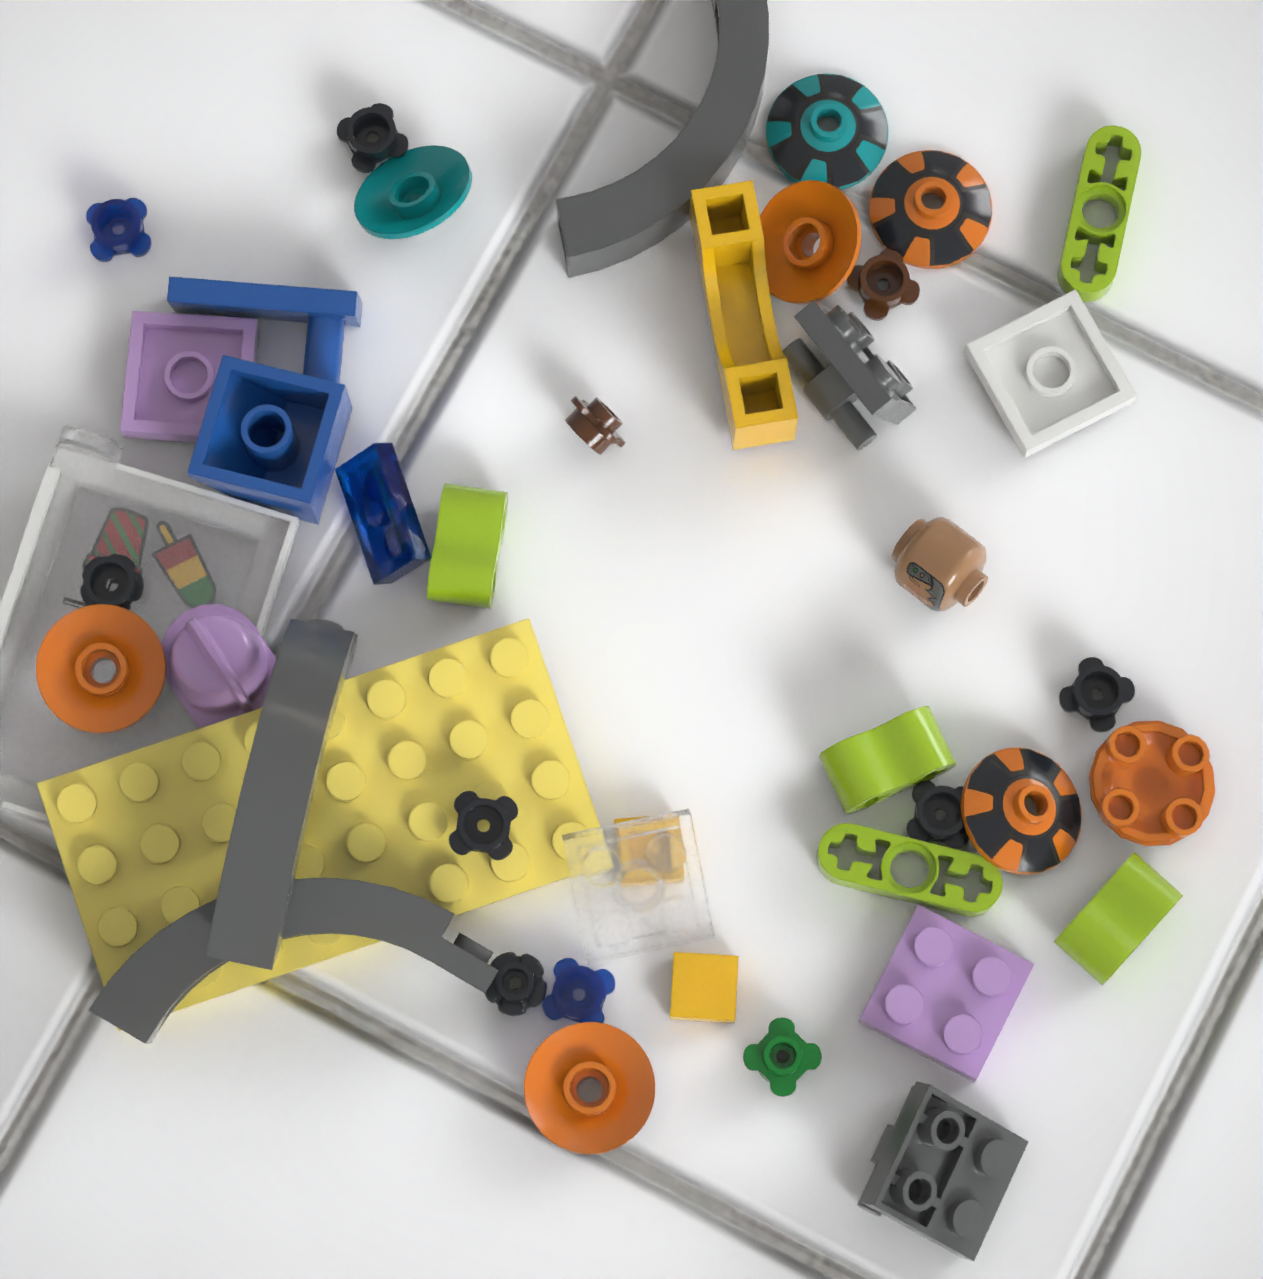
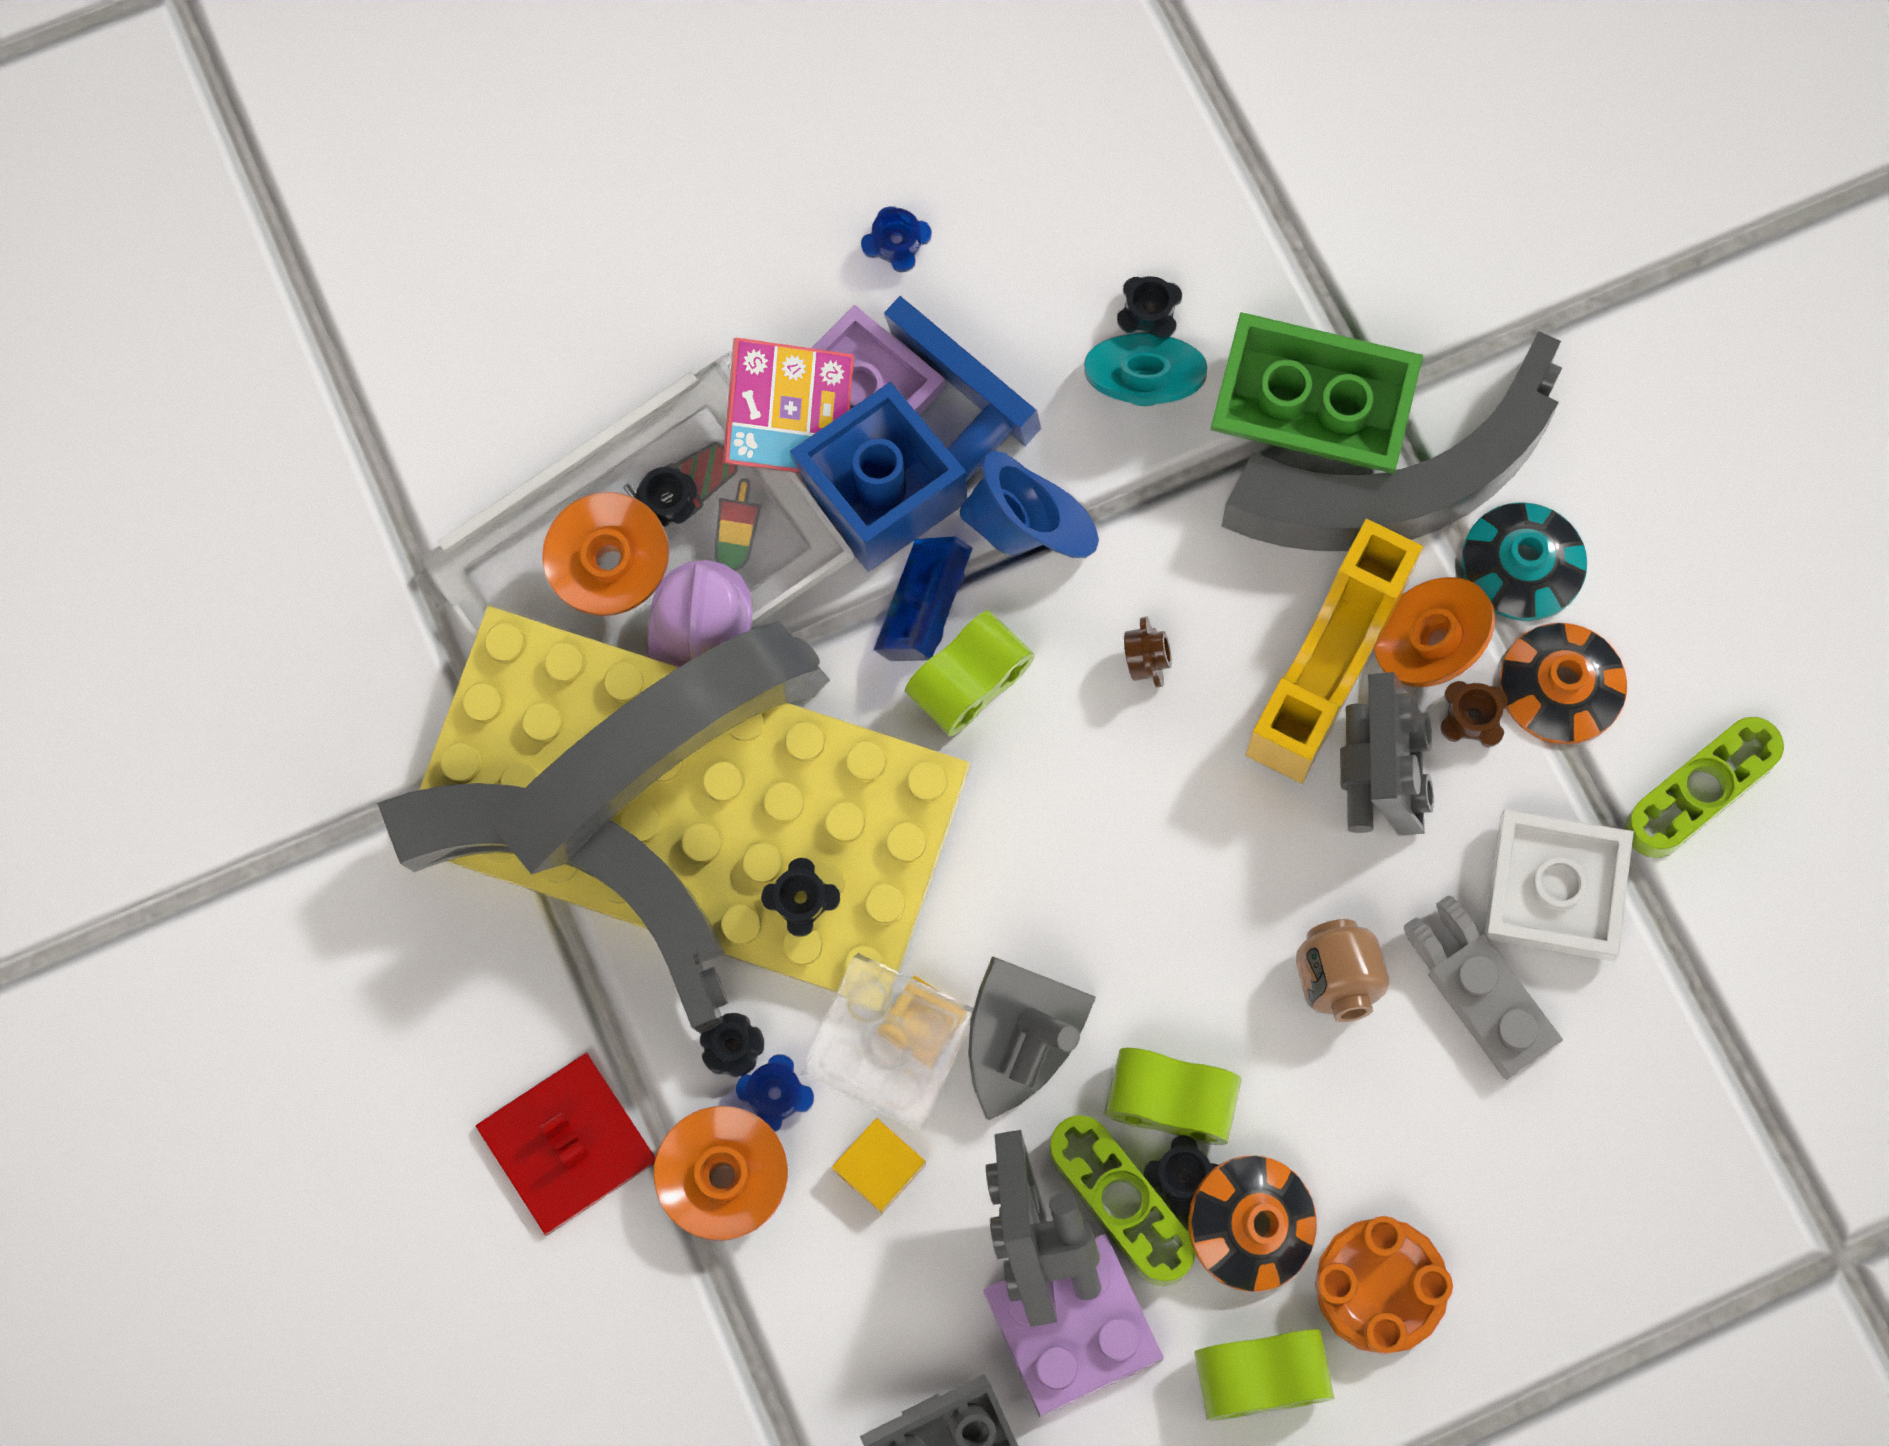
camera: 40 degrees right, 5 degrees down
(146, 435) = (781, 399): none -> piece
(410, 381) = (1024, 511): none -> blue piece
(445, 1160) = (566, 1143): none -> red piece
(569, 115) = (1317, 392): none -> bright green slope
(736, 800) = (1021, 1033): none -> dark grey shield
(782, 1076) = (882, 1284): green plate -> none
(890, 956) = (1037, 1248): none -> dark grey plate
(1055, 499) = (1484, 992): none -> light grey hinge
(1093, 676) = (1404, 1161): black plate -> none

